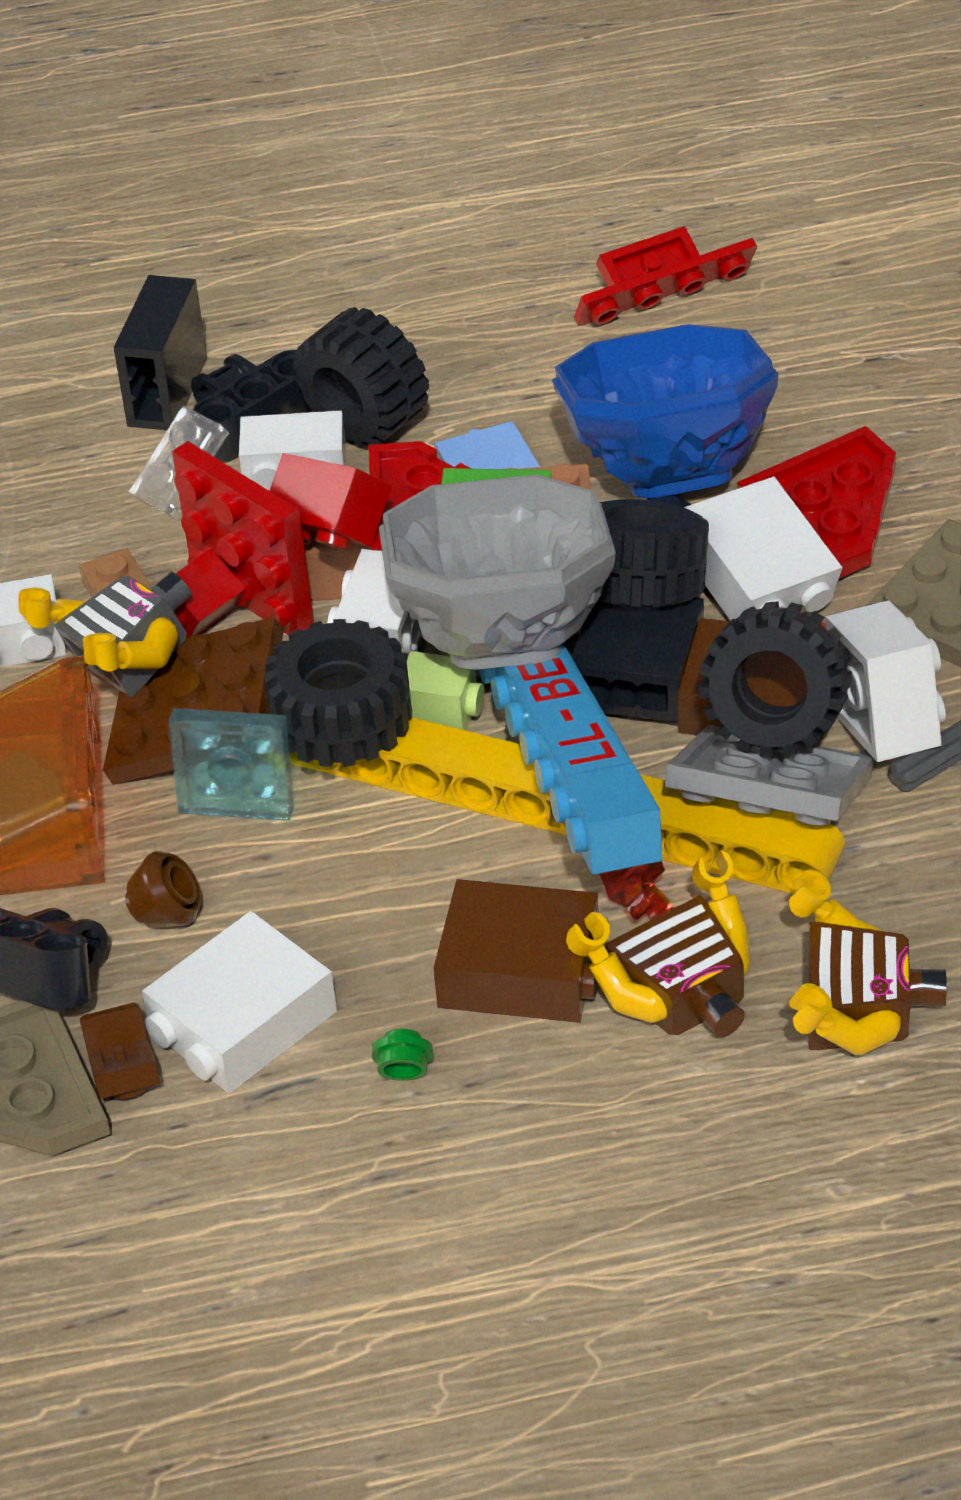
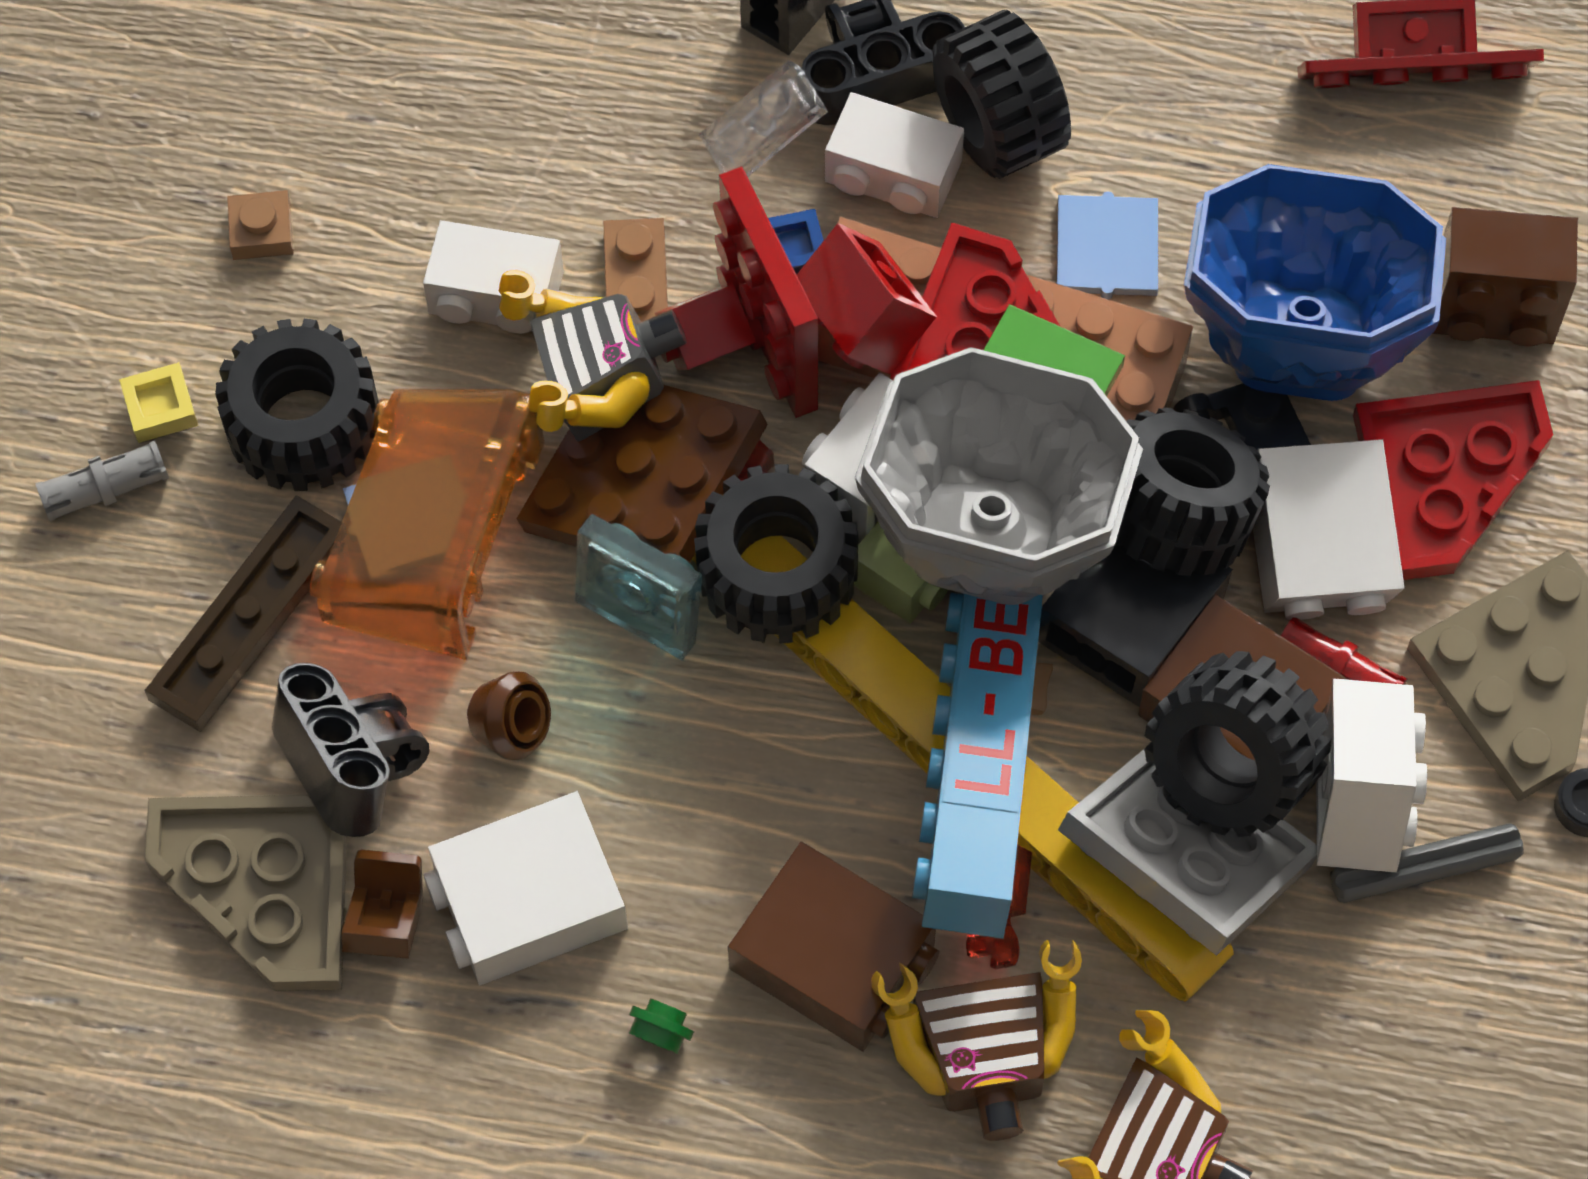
camera: 20 degrees right, 20 degrees up
(817, 365) = (1507, 275): none -> reddish brown brick

